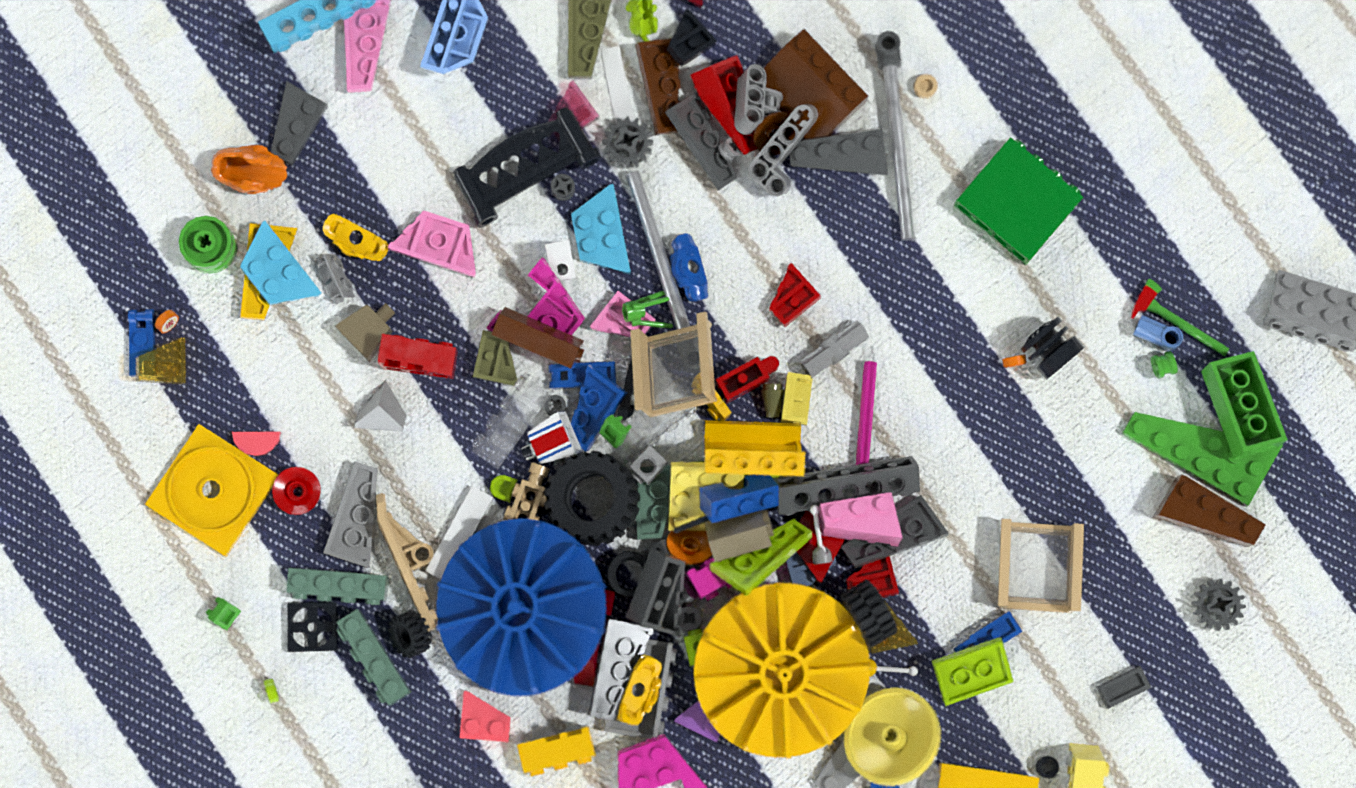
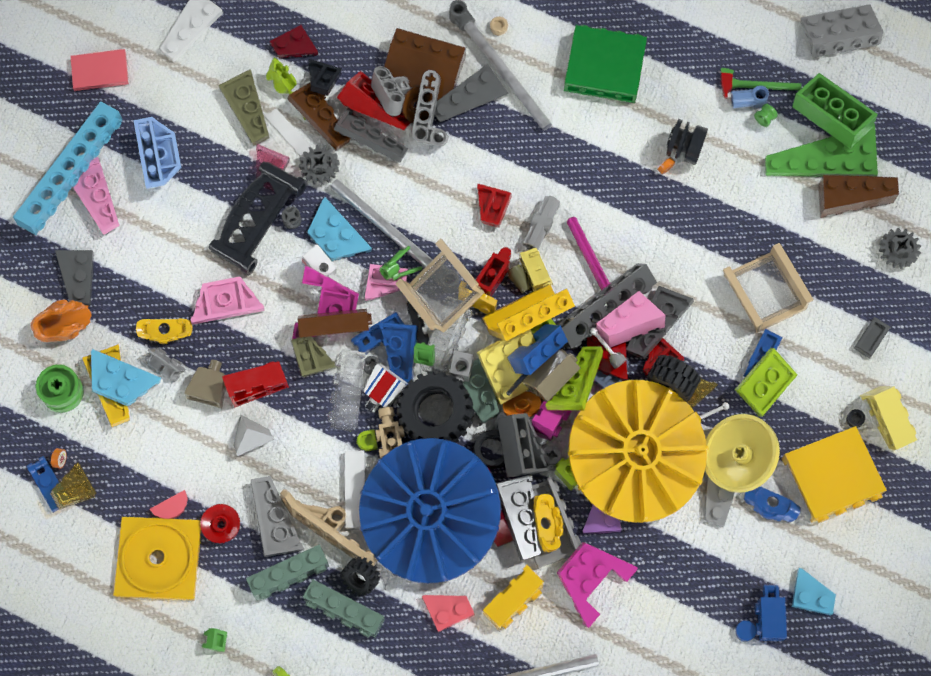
camera: 25 degrees left, 10 degrees down
(330, 645) = (281, 635): black piece -> none
(694, 283) = (419, 231): blue piece -> none
(729, 149) = (392, 132): light grey bush -> none

